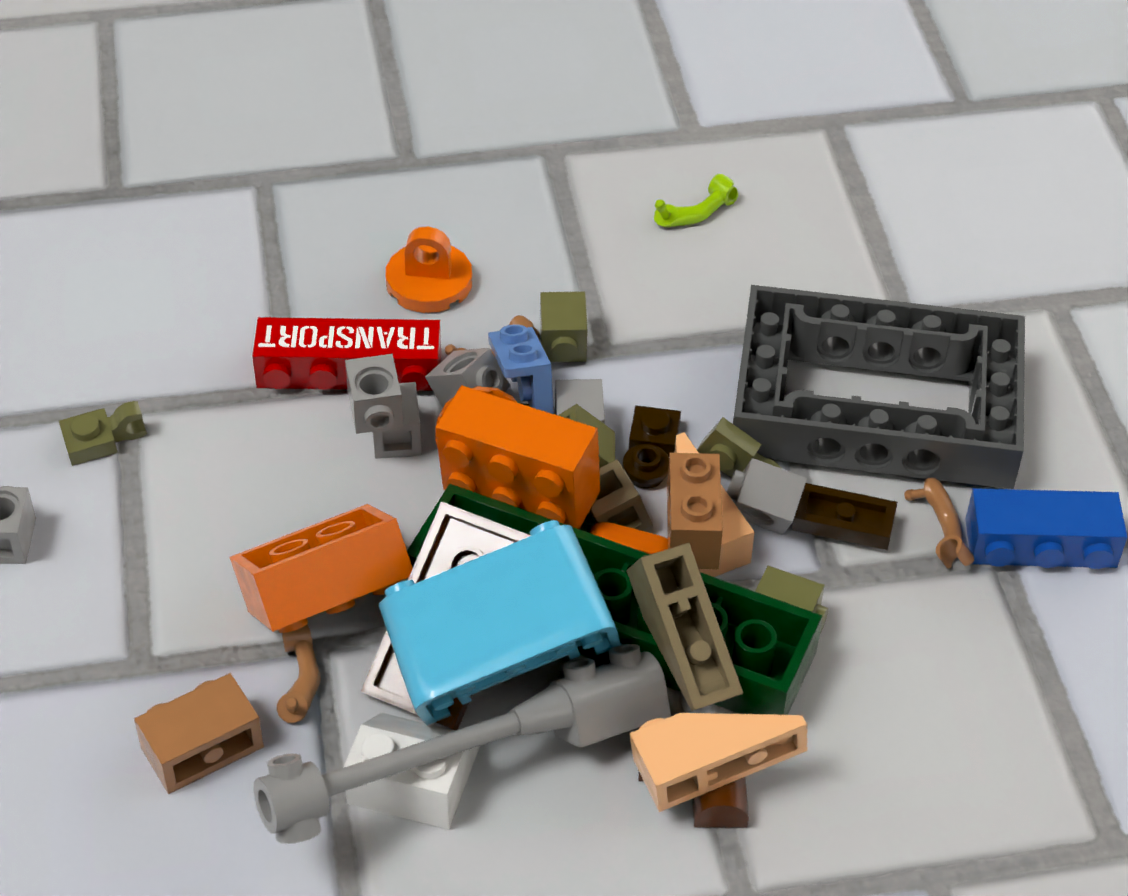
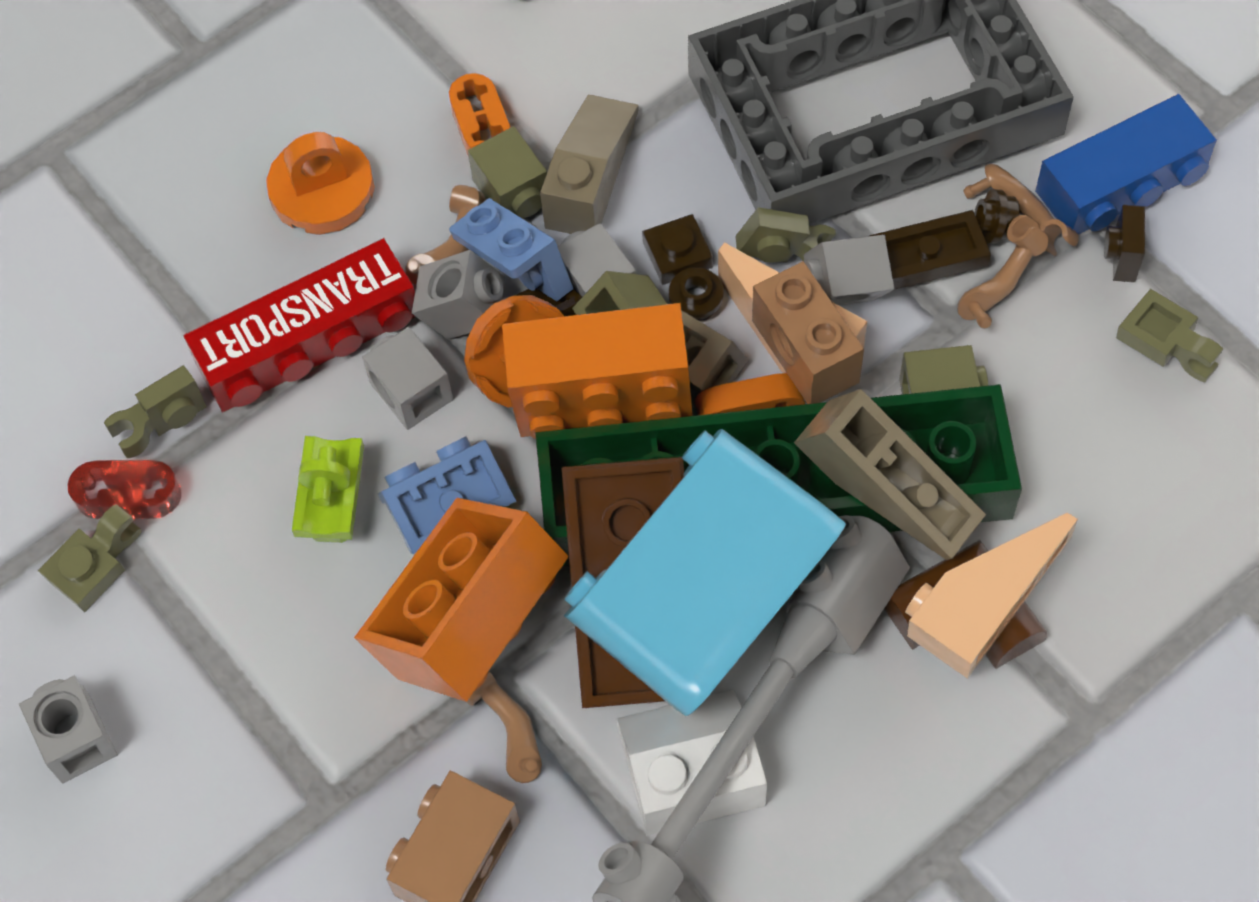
camera: 25 degrees left, 15 degrees up
(156, 397) = (125, 485): none -> clear red beam
(215, 358) = (161, 407): none -> olive plate
(287, 458) = (328, 489): none -> lime hips
(374, 393) = (378, 349): light grey brick -> none
(388, 492) = (422, 498): none -> medium blue bracket
(568, 263) = (470, 122): none -> orange beam
(625, 344) = (587, 164): none -> dark tan slope
(865, 568) = (1029, 242): none -> medium nougat piece
(914, 516) = (996, 214): none -> dark brown plate
(997, 655) = (1167, 330): none -> olive plate
(1007, 581) = (1126, 243): none -> dark brown plate

